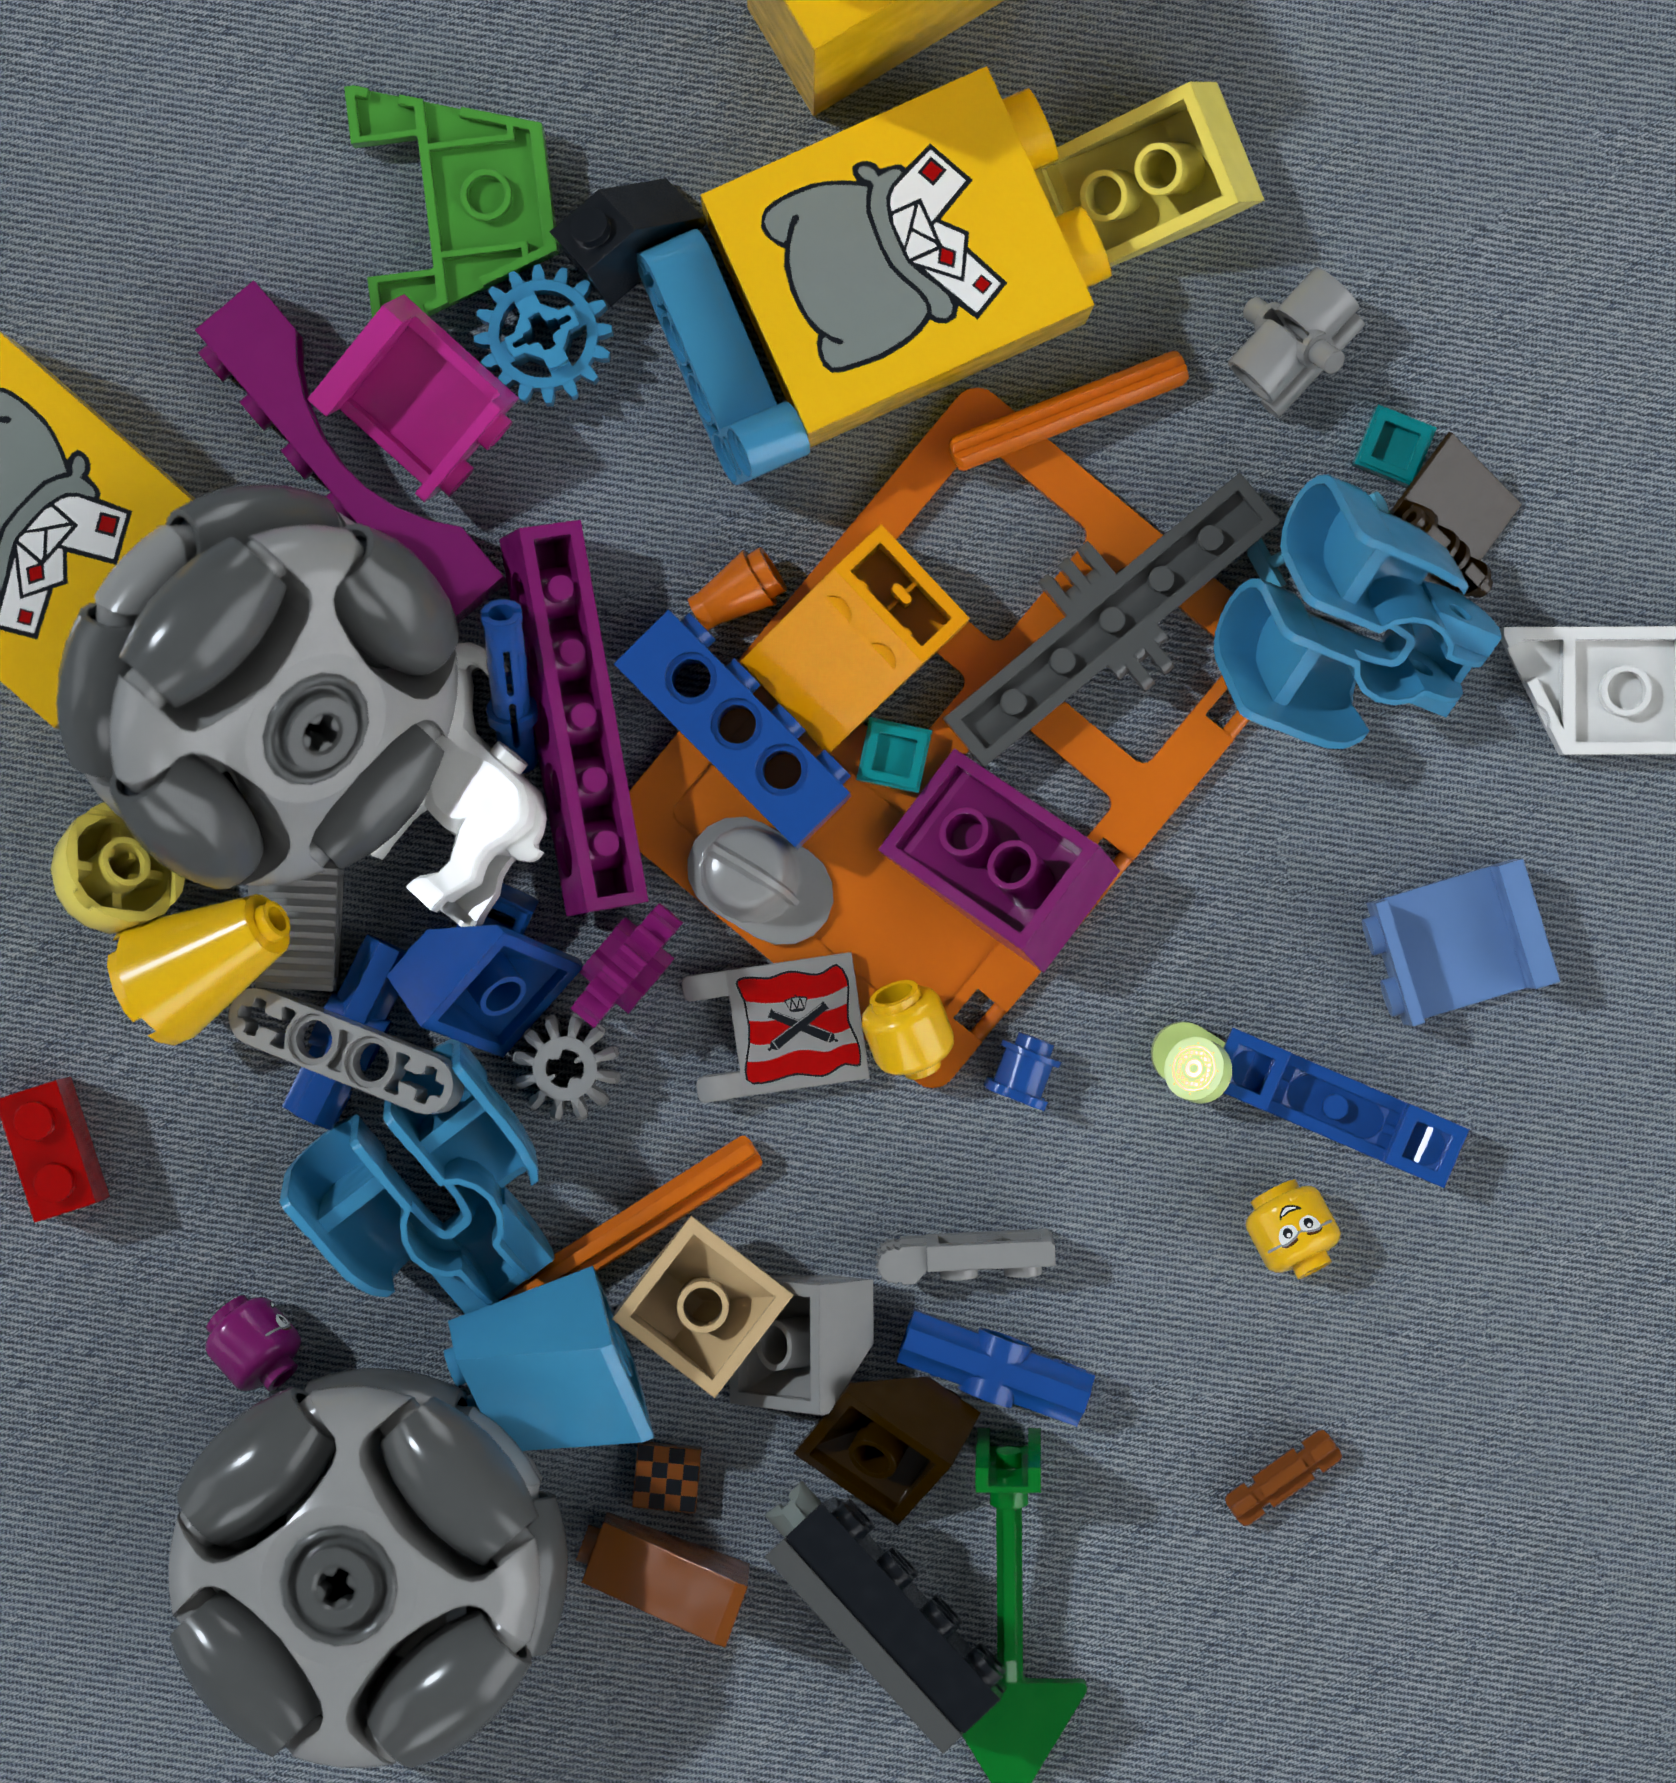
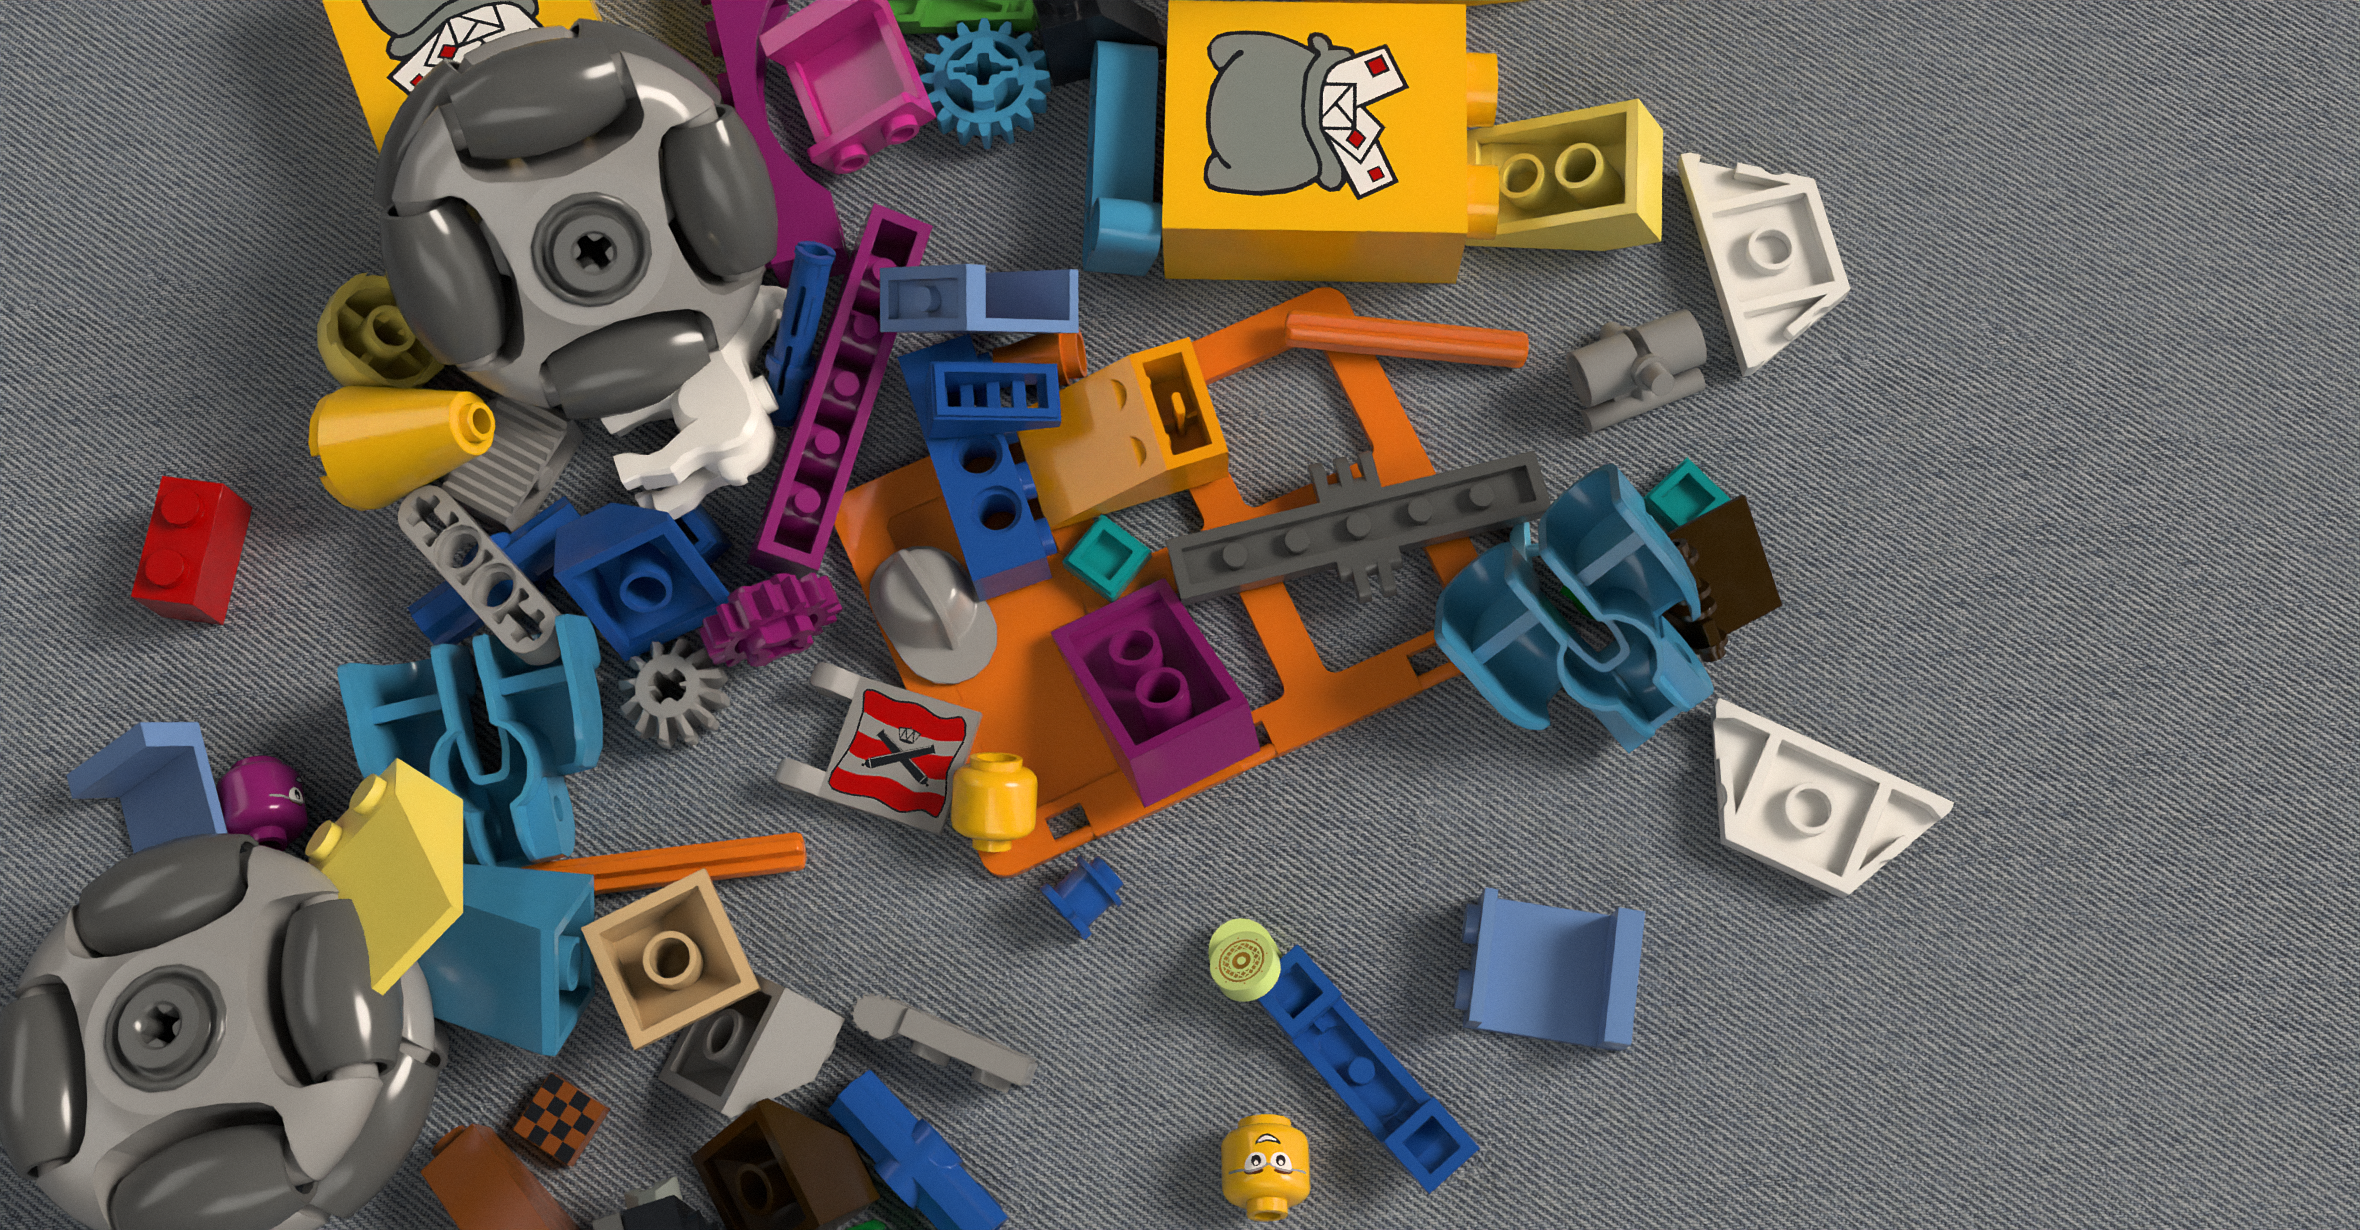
camera: 30 degrees right, 15 degrees down
(169, 1385) = (160, 780): none -> medium blue panel
(443, 1347) = (398, 863): none -> light yellow slope
(677, 694) = (991, 419): none -> blue slope
(699, 570) = (978, 302): none -> medium blue panel
(1364, 162) = (1764, 253): none -> white wing

